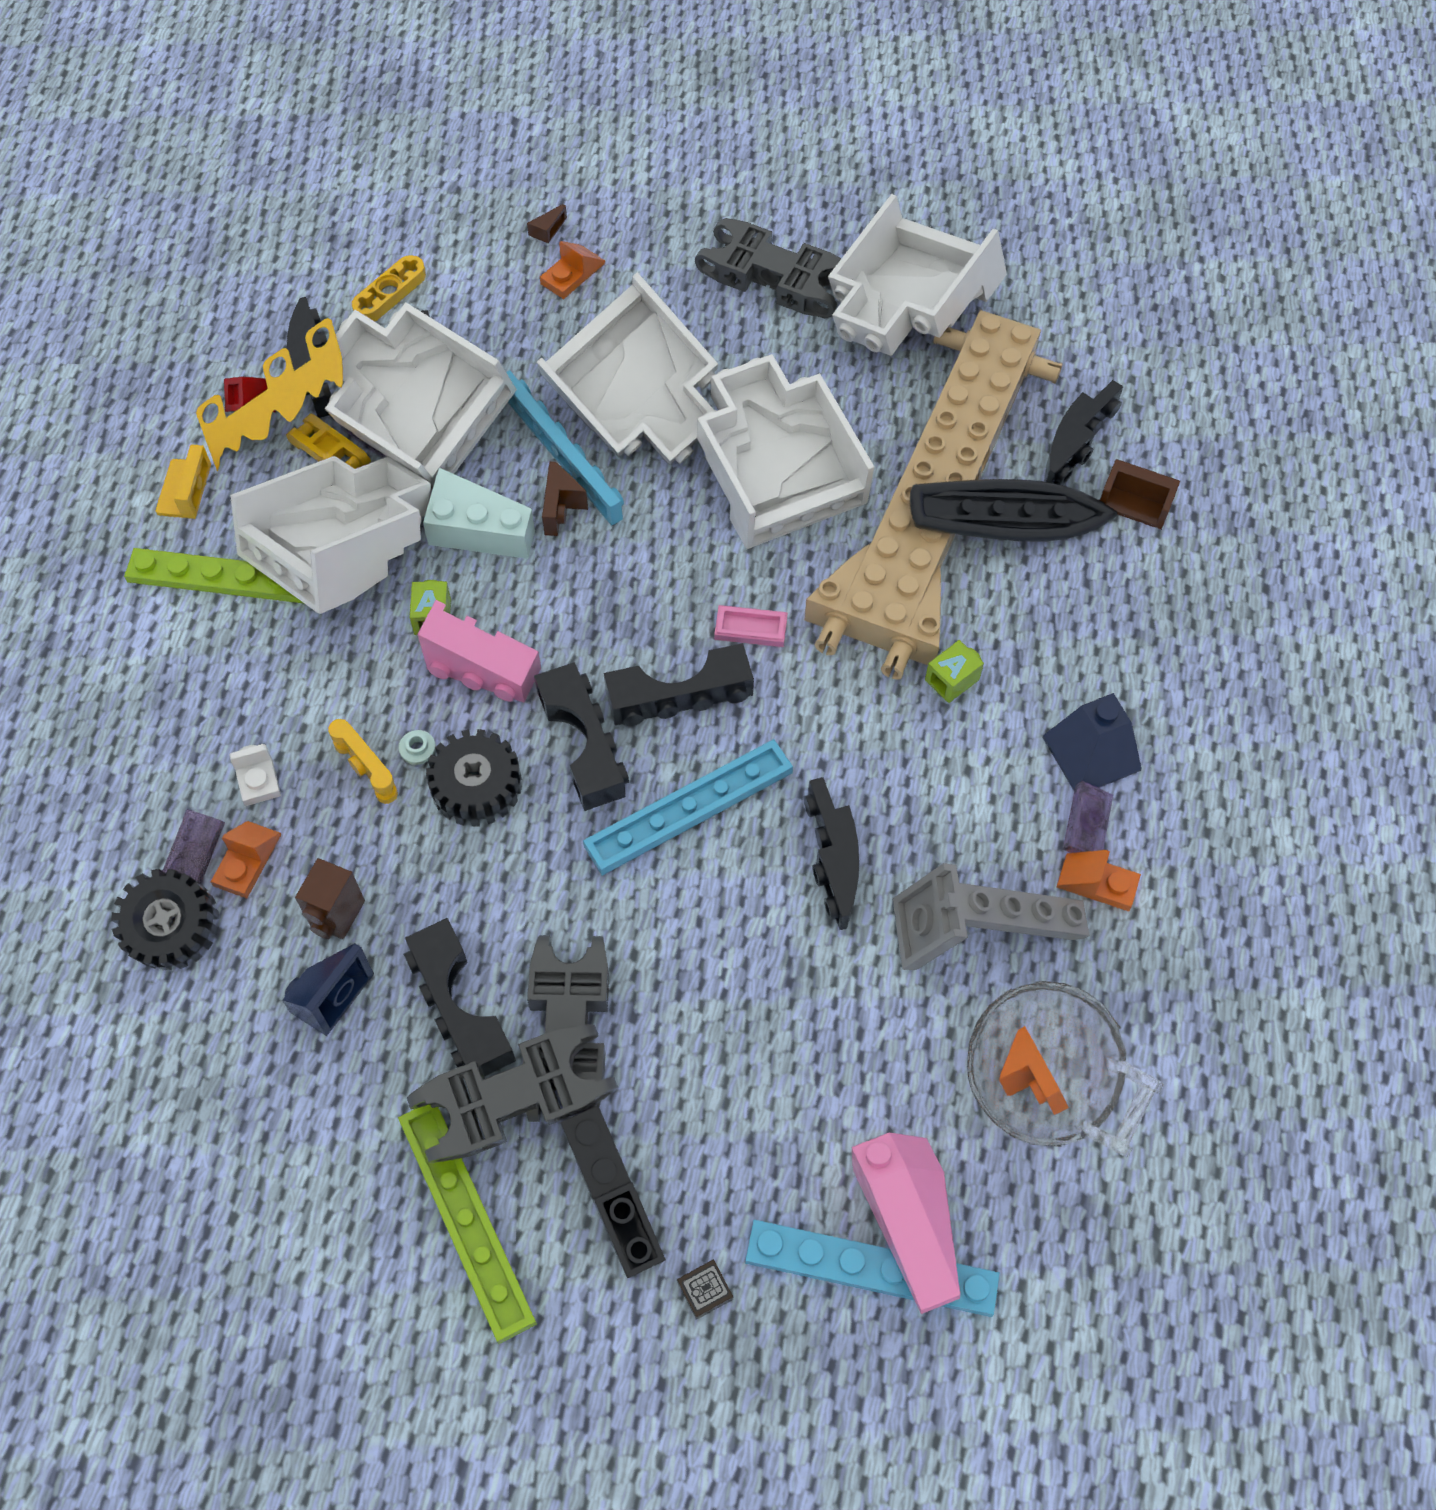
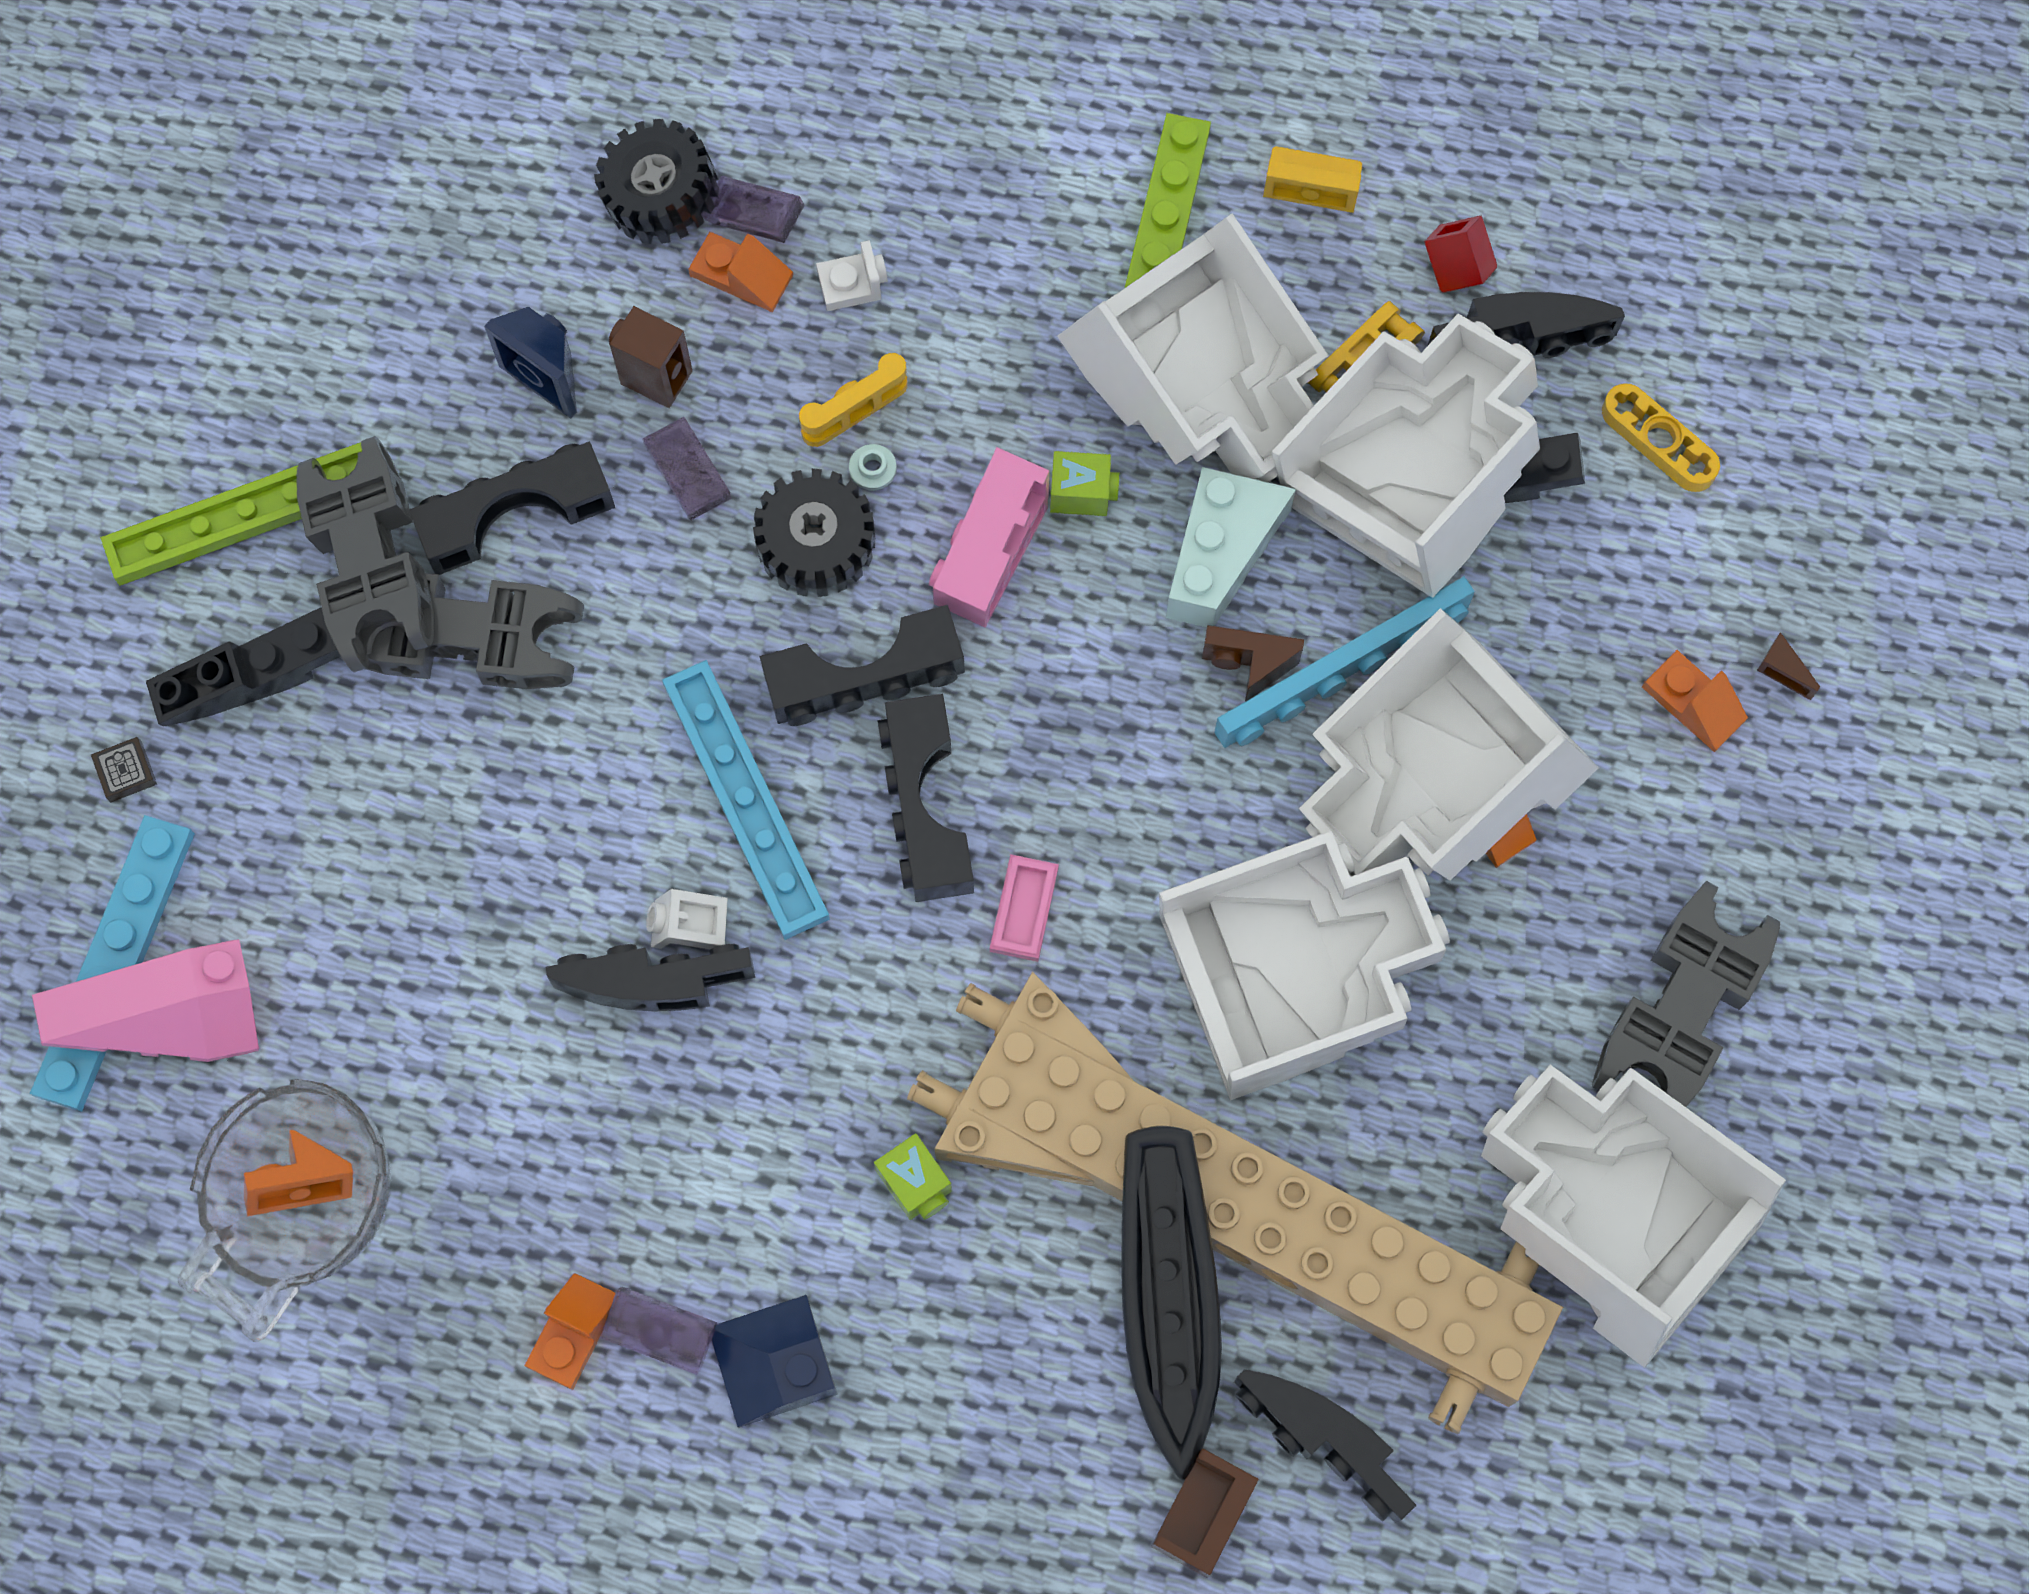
camera: 95 degrees right, 10 degrees up
(283, 394) = (1425, 282): yellow piece -> none
(420, 876) = (687, 468): none -> clear purple plate
(788, 836) = (687, 919): none -> white bracket
(938, 908) = (517, 1088): light grey bracket -> none

